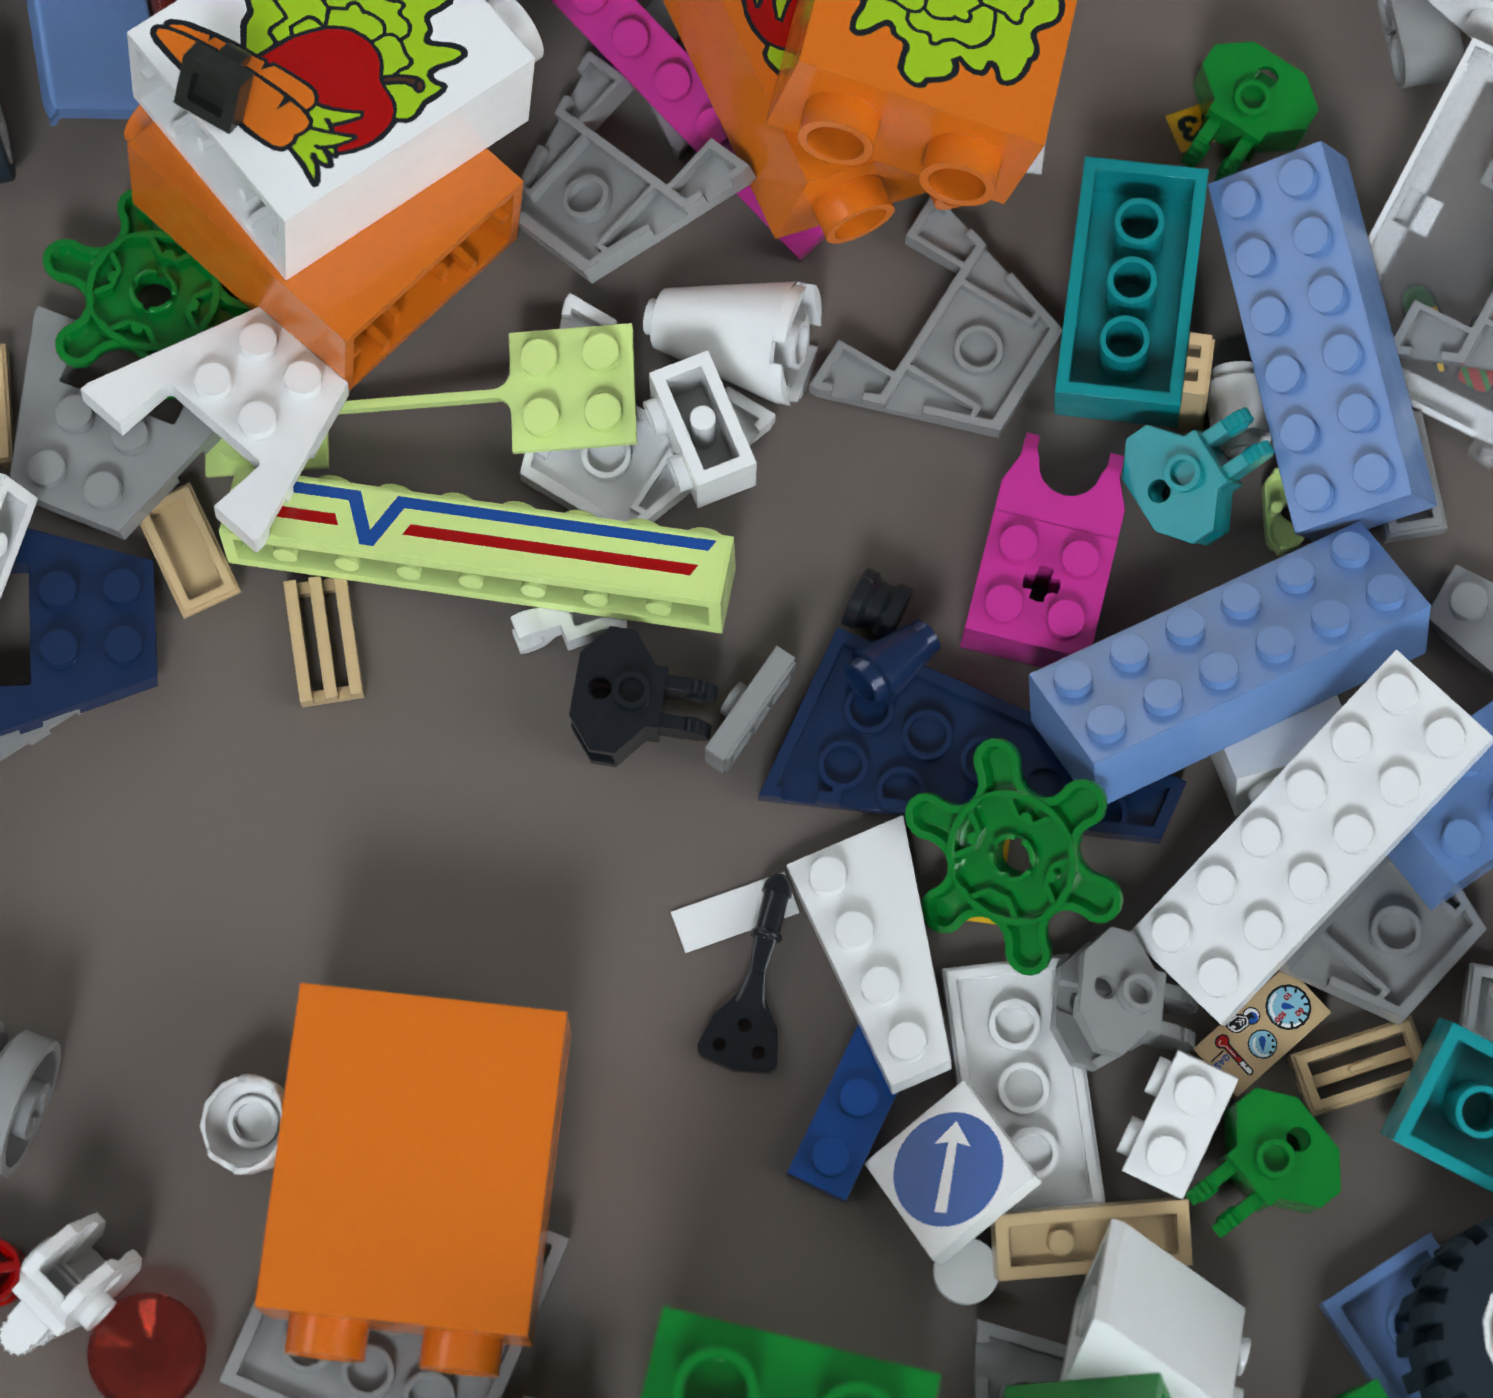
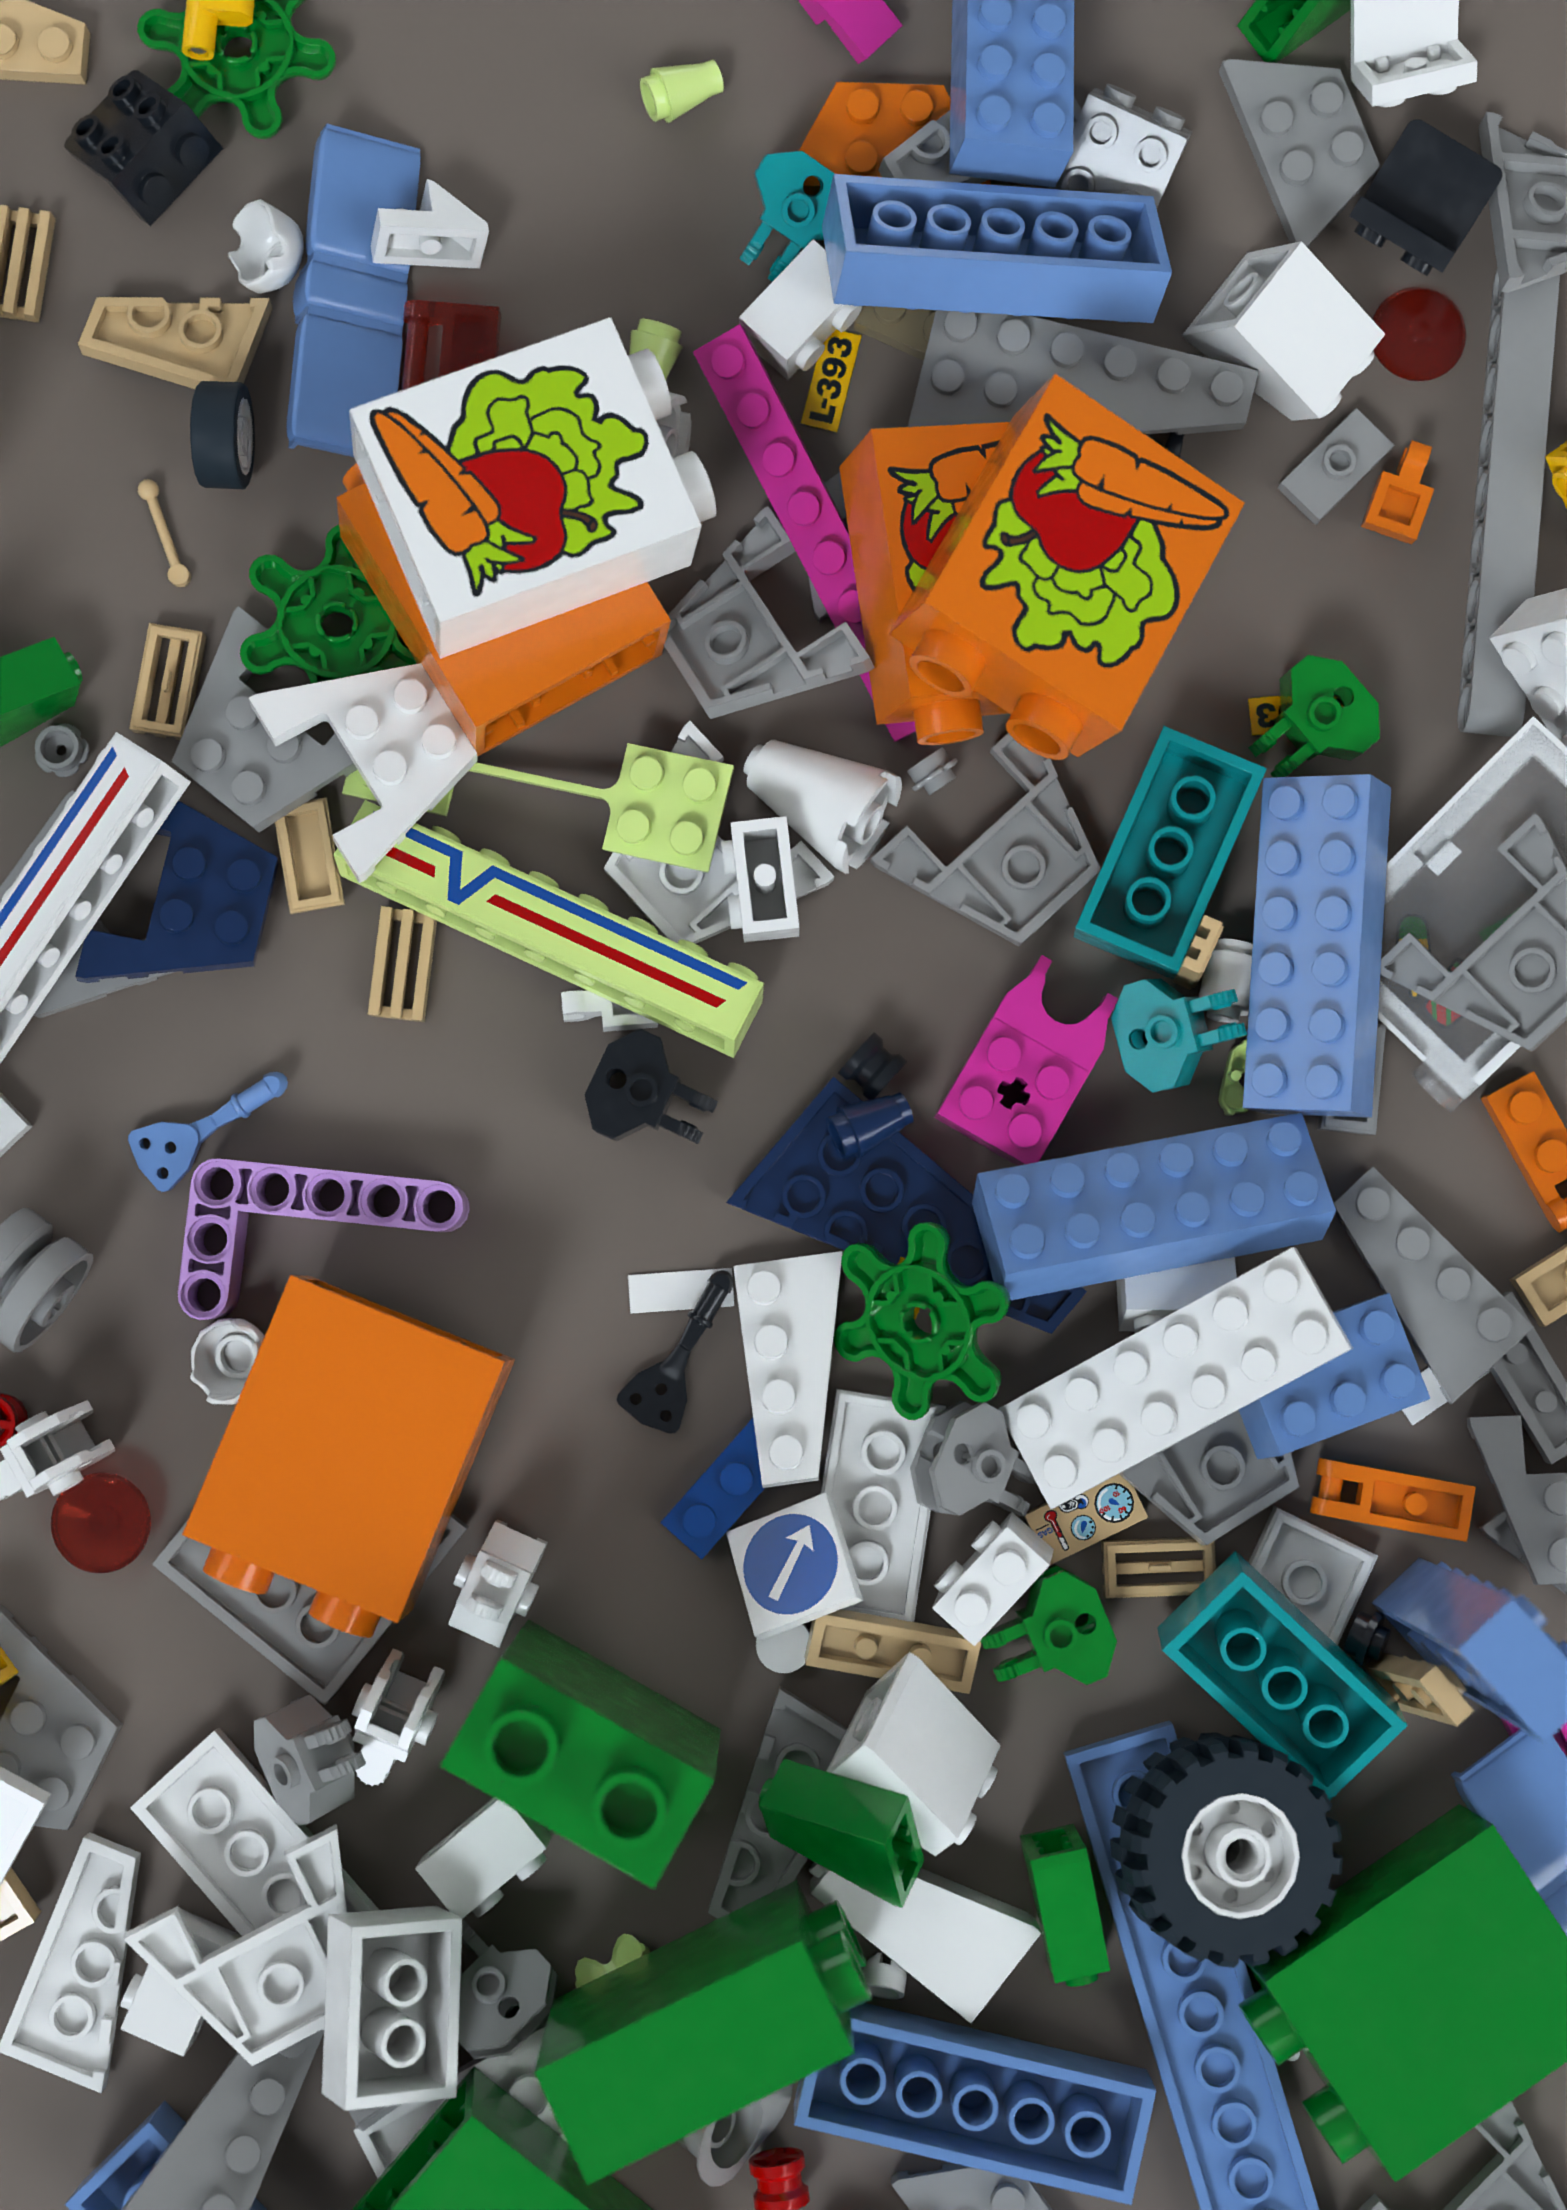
camera: 15 degrees right, 10 degrees up
(135, 891) = (190, 1136): none -> medium blue piece
(215, 84) = (410, 482): pearl dark grey tile -> none
(280, 932) = (302, 1202): none -> lavender beam
(622, 1289) = (497, 1584): none -> white hinge
(748, 708) = (739, 1124): light grey plate -> none
(849, 278) = (933, 771): none -> light grey plate

